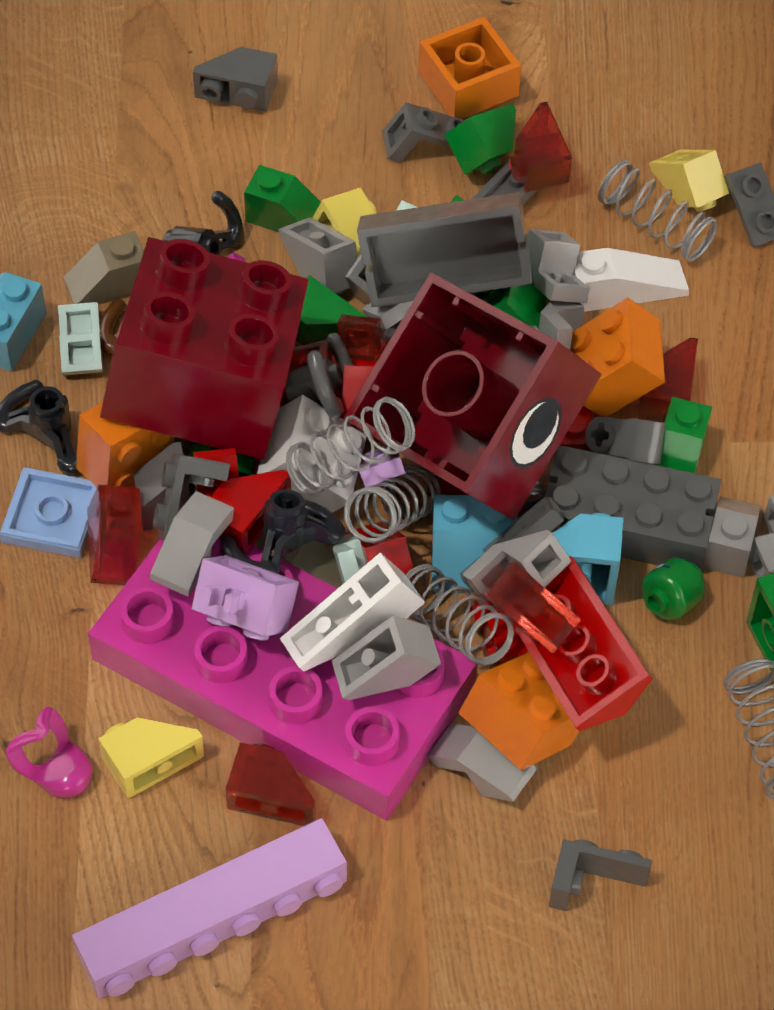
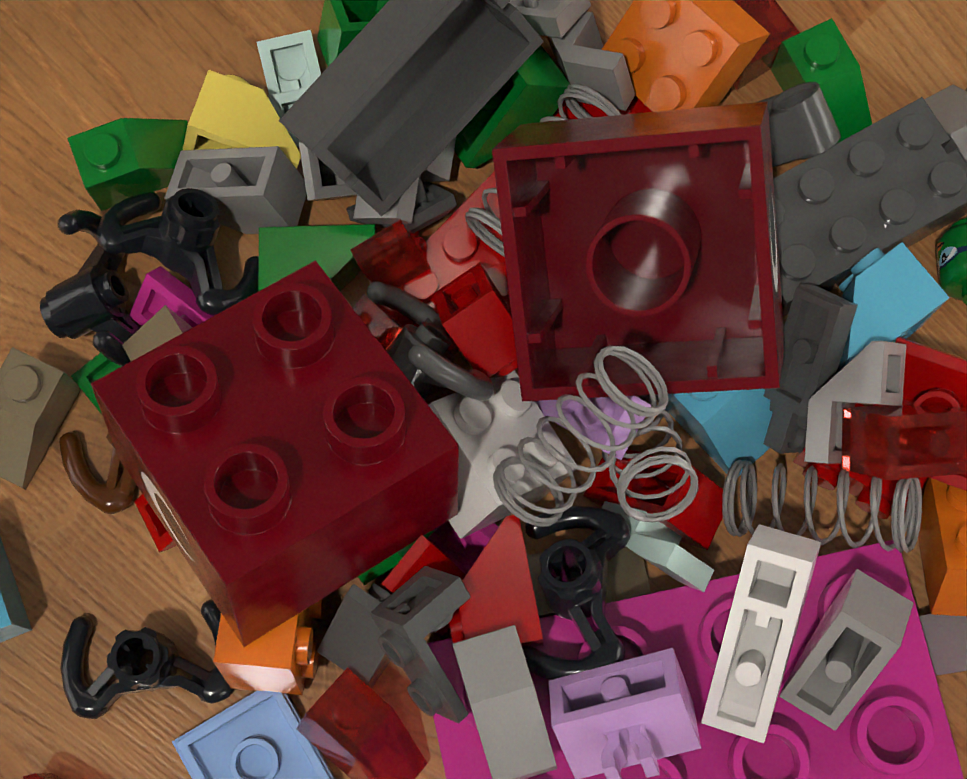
camera: 40 degrees left, 20 degrees up
(80, 338) = (72, 525): light aqua slope -> none
(262, 239) = (180, 240): none -> black piece

